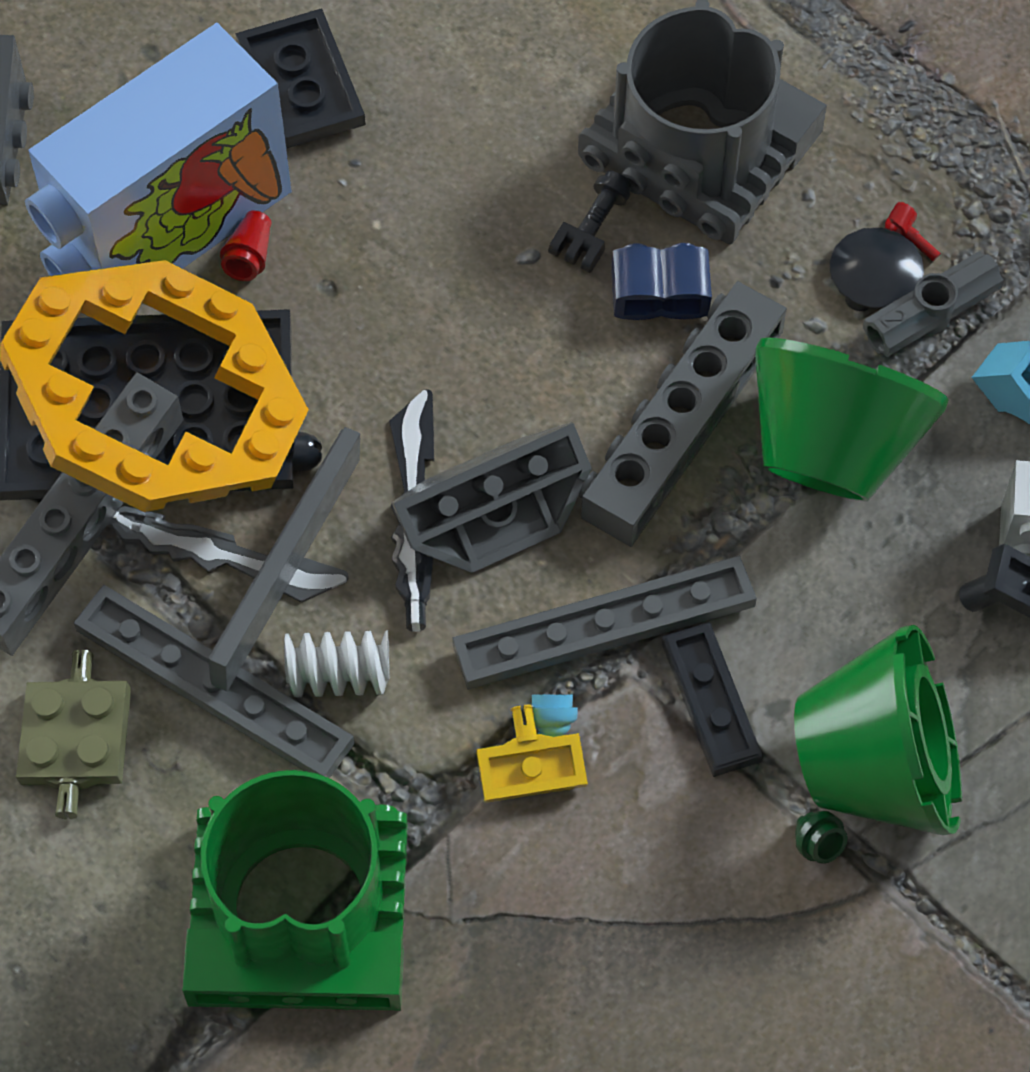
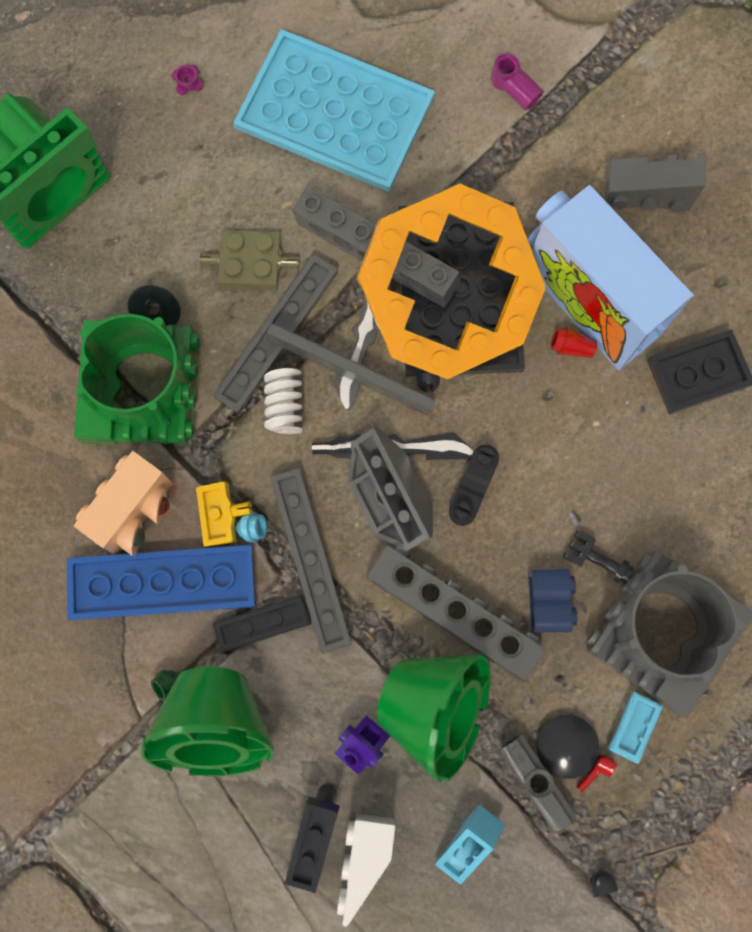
camera: 90 degrees right, 15 degrees up
(159, 876) = (141, 303): none -> black piece
(478, 387) = (474, 485): none -> black piece
(521, 902) = (123, 505): none -> light nougat piece
(650, 857) = (160, 582): none -> blue plate
(843, 180) = (635, 727): none -> medium azure plate
(896, 534) = (362, 745): none -> dark purple brick

